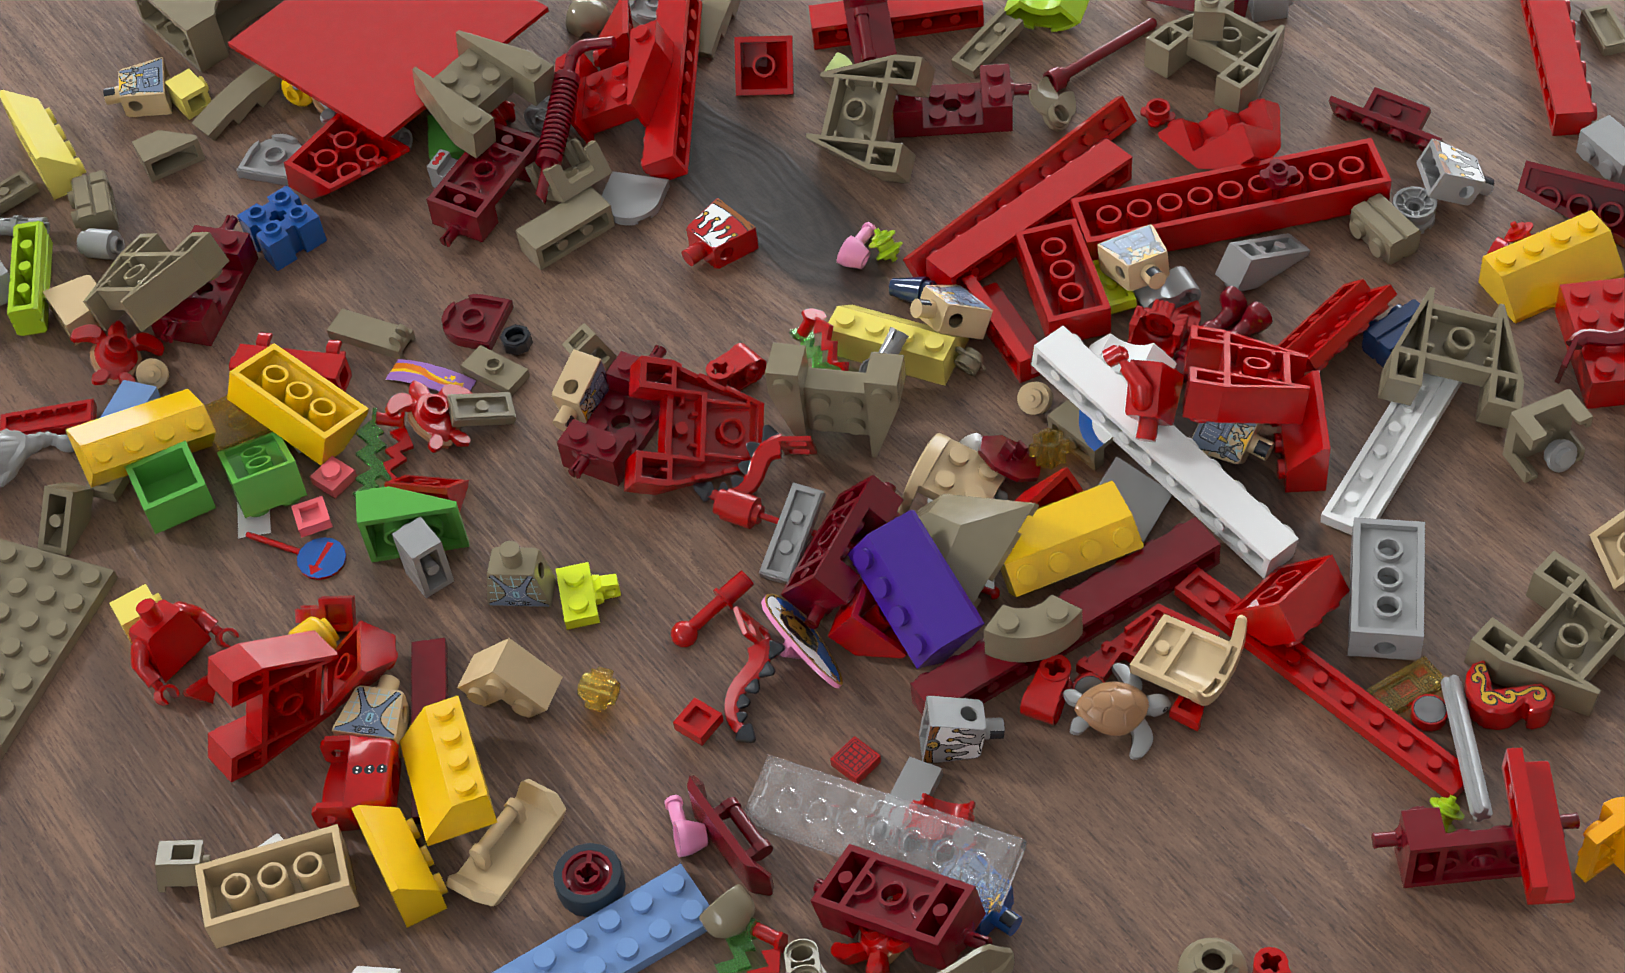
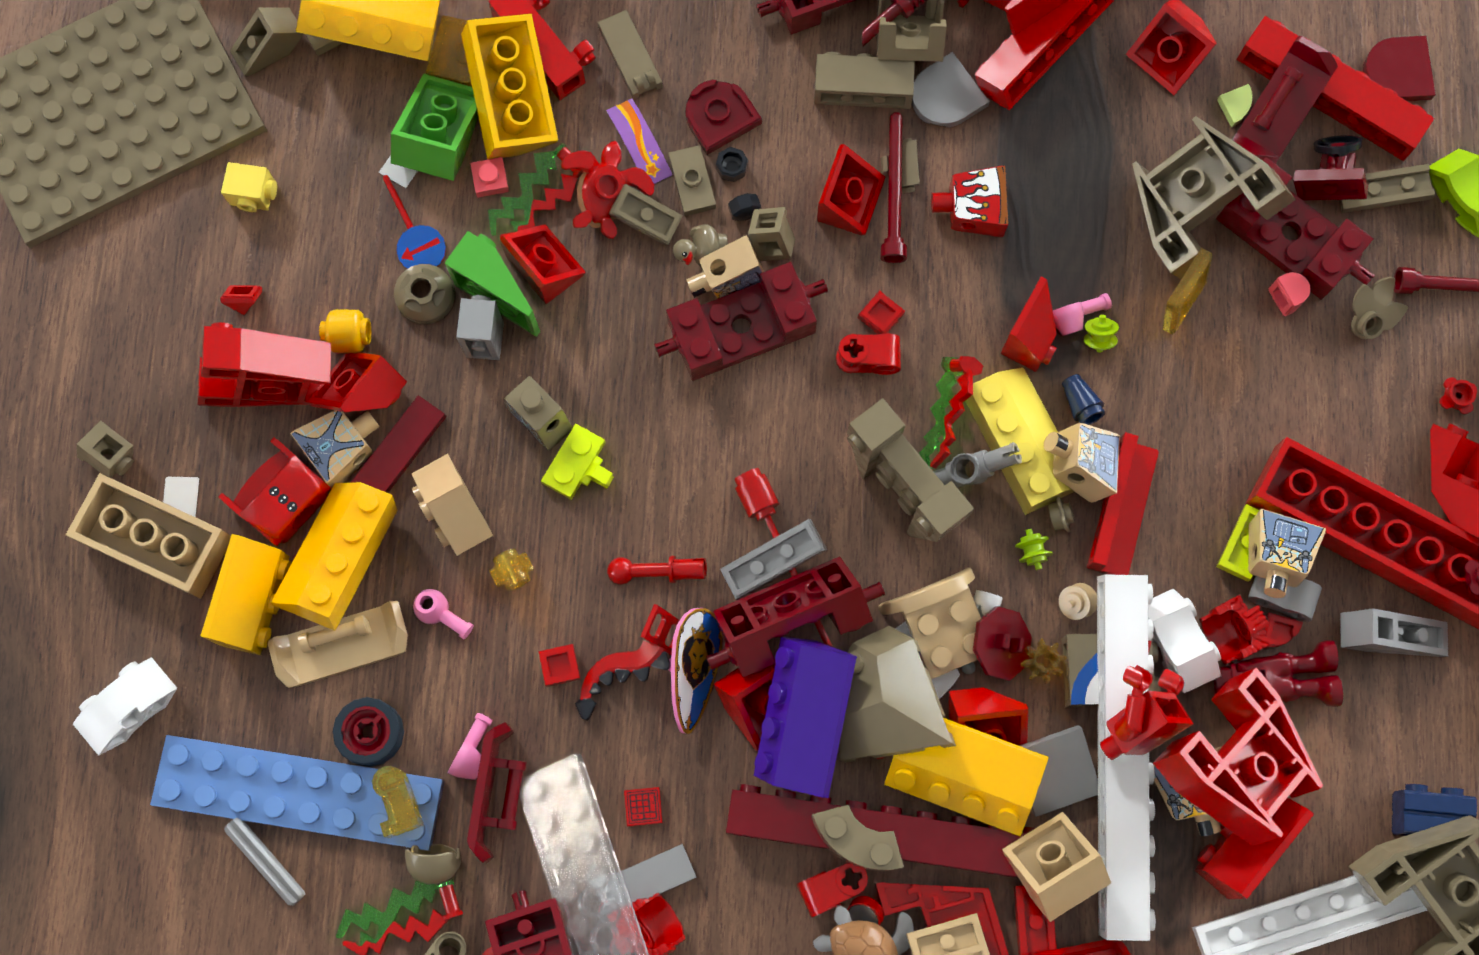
camera: 35 degrees right, 25 degrees up
(168, 639) = (246, 235): red torso -> none
(170, 487) = (356, 84): bright green piece -> none
(311, 516) = (441, 204): coral plate -> none
(338, 610) = (384, 314): red plate -> none
(364, 585) = (426, 309): none -> dark tan piece
(539, 396) = (704, 242): none -> dark tan animal
(552, 355) = (742, 206): none -> black tile
(563, 768) = (439, 612): none -> bright pink bar
(620, 294) = (850, 192): none -> red slope
(644, 256) = (910, 167): none -> dark tan piece
(662, 891) = (398, 800): none -> clear yellow leg
(686, 302) = (894, 248): none -> dark red piece
(699, 427) = (787, 398): red wedge -> none
(716, 344) = (881, 313): none -> red tile
(761, 457) = (802, 468): red piece -> none
(836, 272) = (1033, 331): none -> red slope
(918, 176) = (1187, 291): none -> clear yellow tile
(948, 55) = (1337, 172): none -> dark red piece
(955, 729) = (722, 852): light grey torso -> none
(970, 392) = (1033, 549): none -> lime wheel
(987, 135) = (1290, 292): none -> coral brick
(993, 239) = (1245, 414): red brick -> none
(1063, 279) = (1205, 509): red brick -> none
(1102, 125) = (1267, 375): red plate -> none
(1188, 537) = (1057, 866): none -> tan slope
(1338, 322) = (1383, 759): red brick -> none

